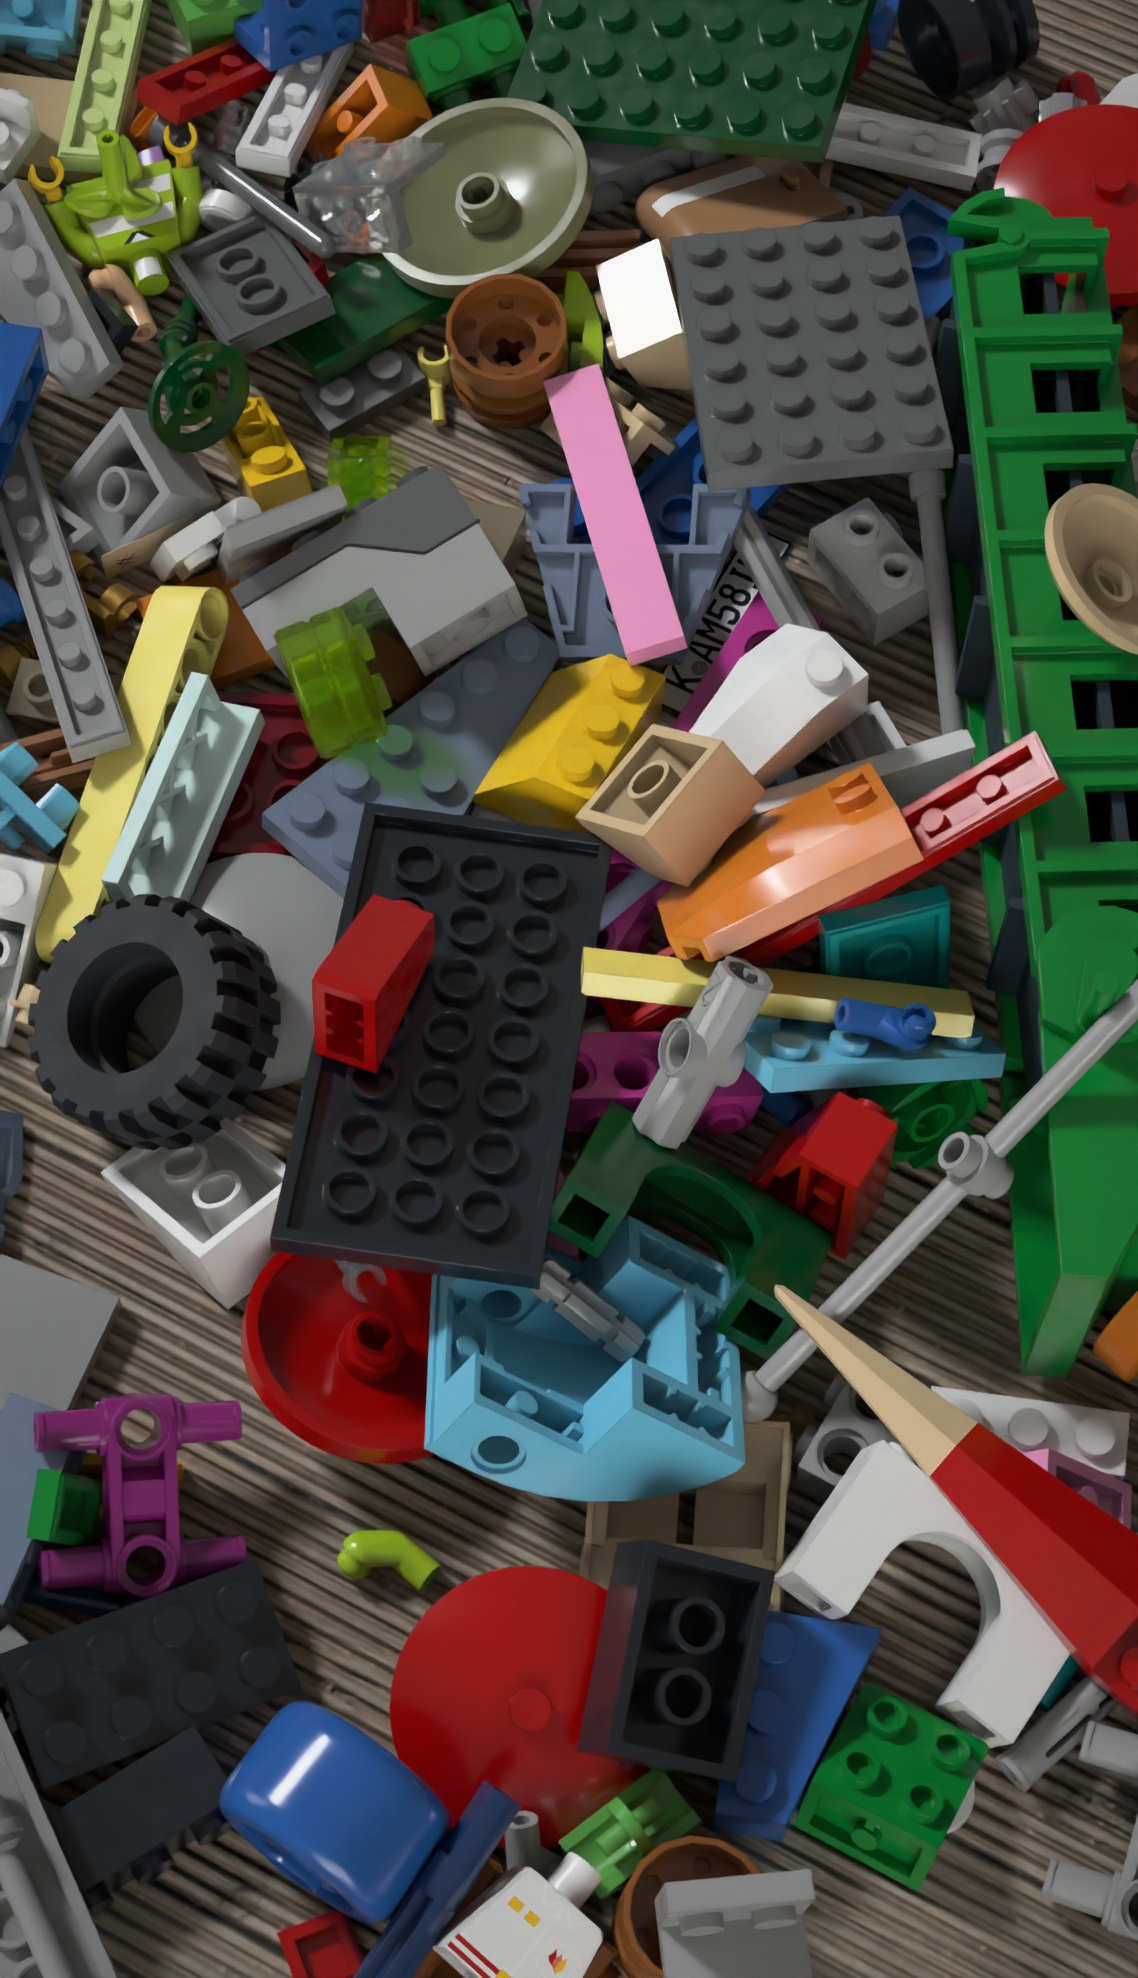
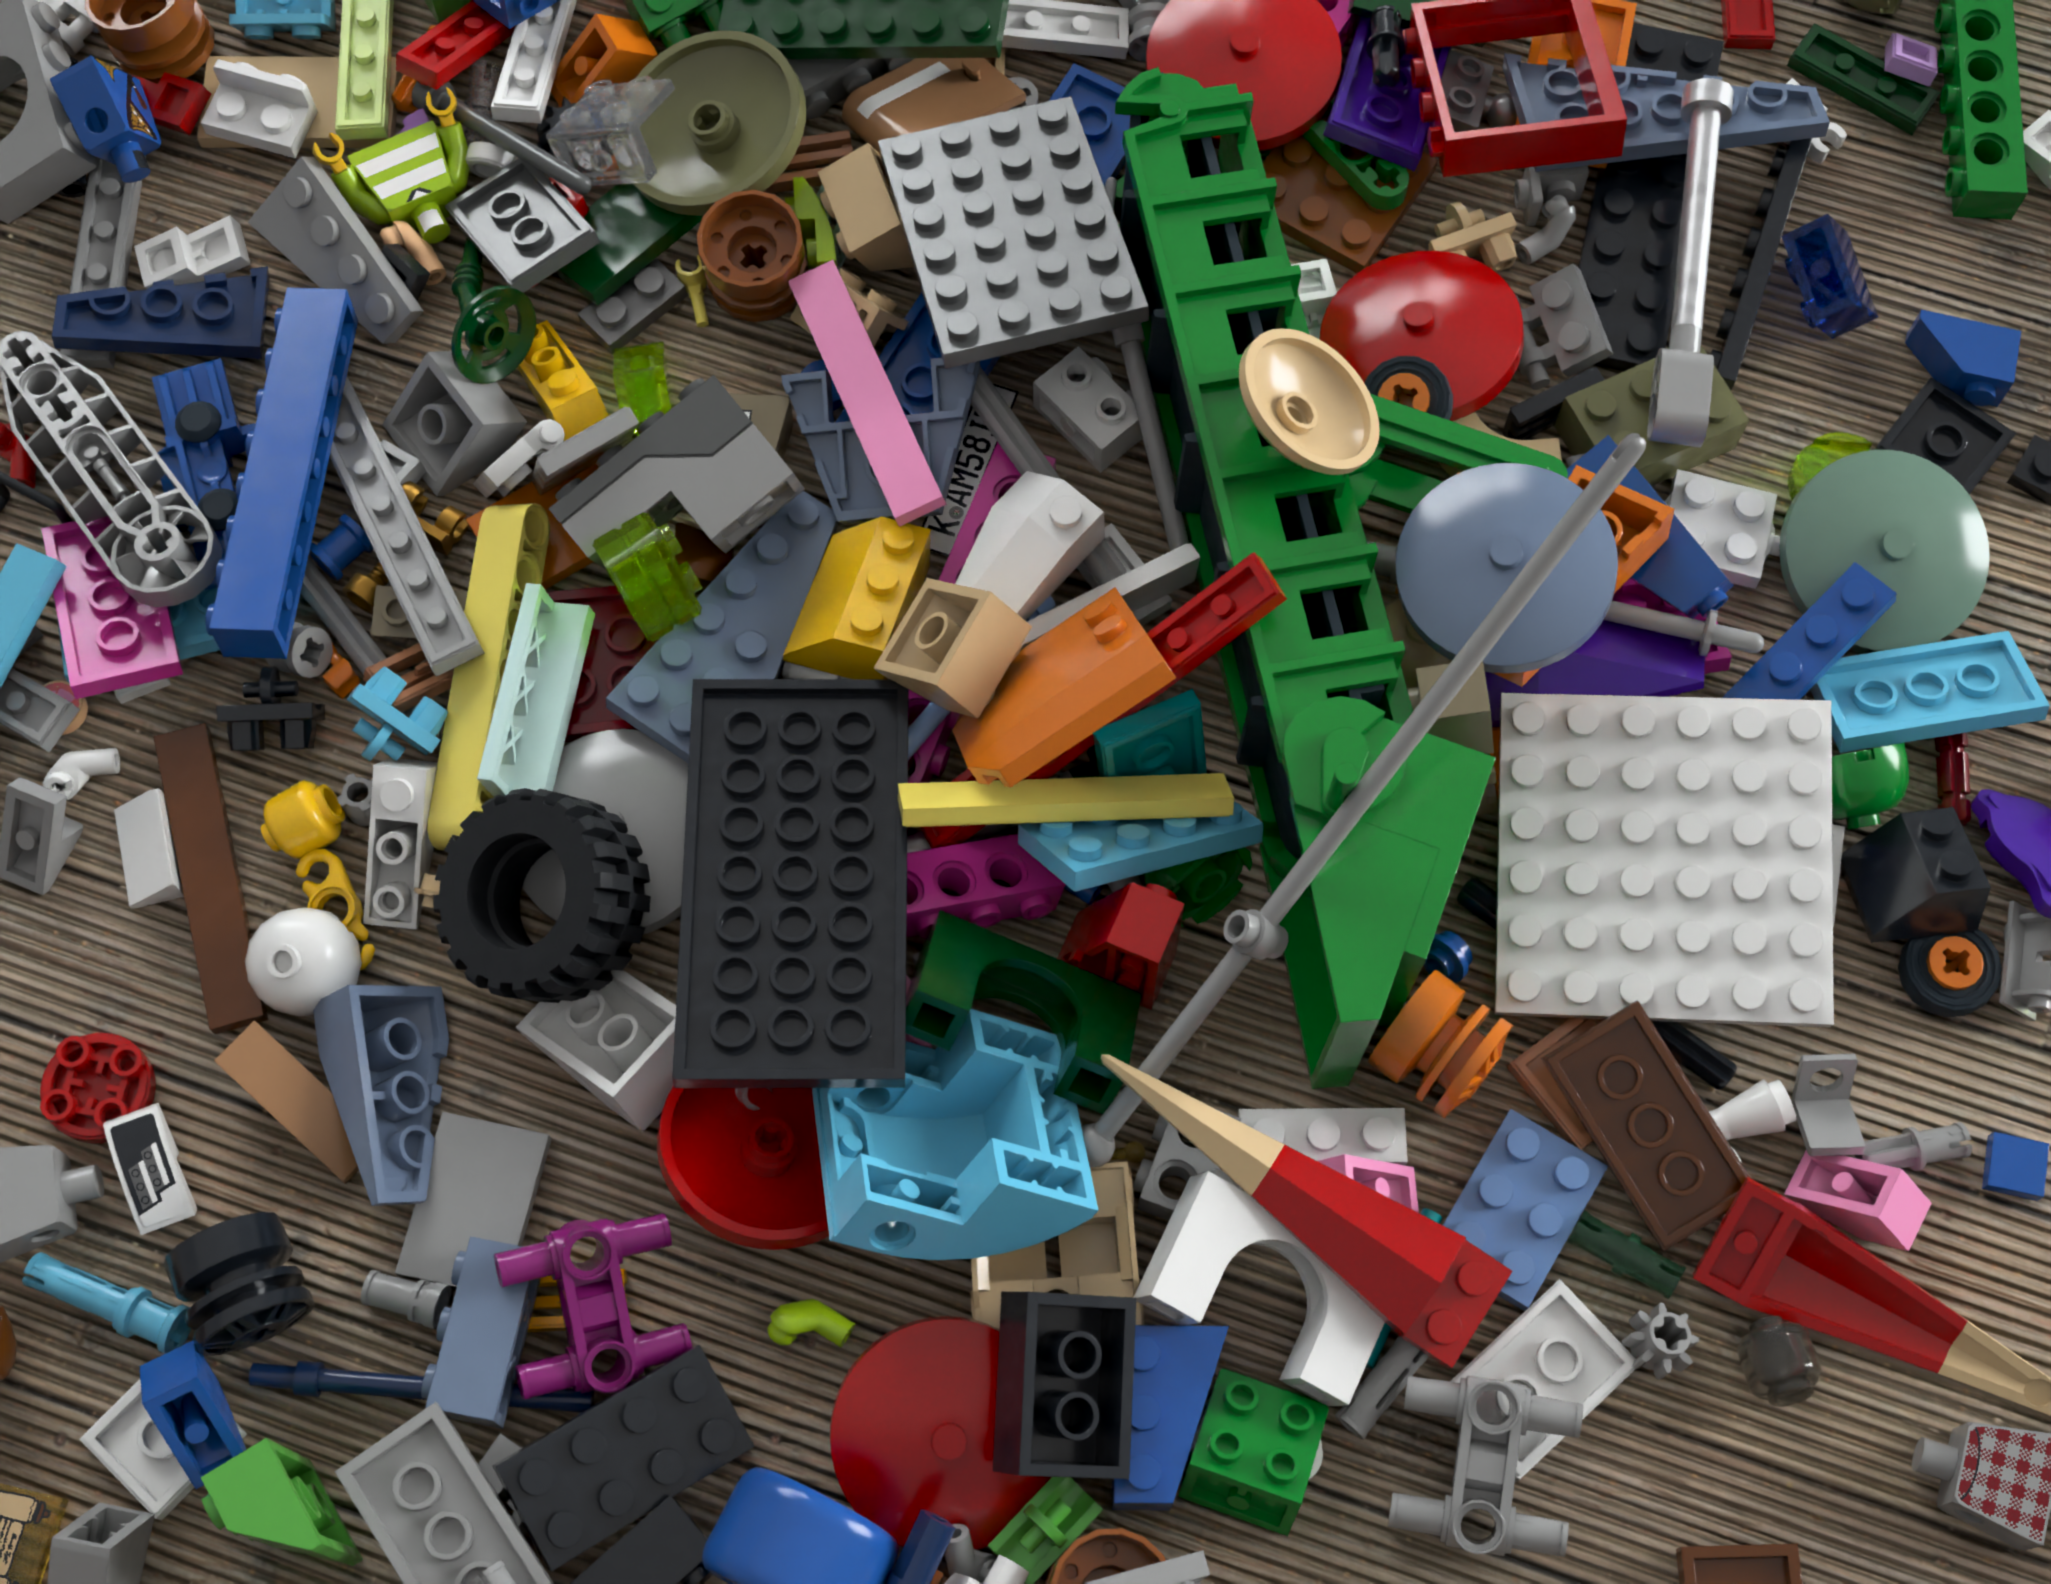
camera: 10 degrees left, 5 degrees up
(64, 1508) = (532, 1330): green tile -> none
(120, 171) = (393, 137): lime plant -> none
(141, 549) = (468, 469): tan sticker -> none
(370, 981) = (723, 842): red slope -> none
(588, 1311) = (948, 1095): light grey axle -> none
(702, 1051) = (1011, 861): light grey piece -> none
(904, 1027) = (1173, 817): blue arm -> none

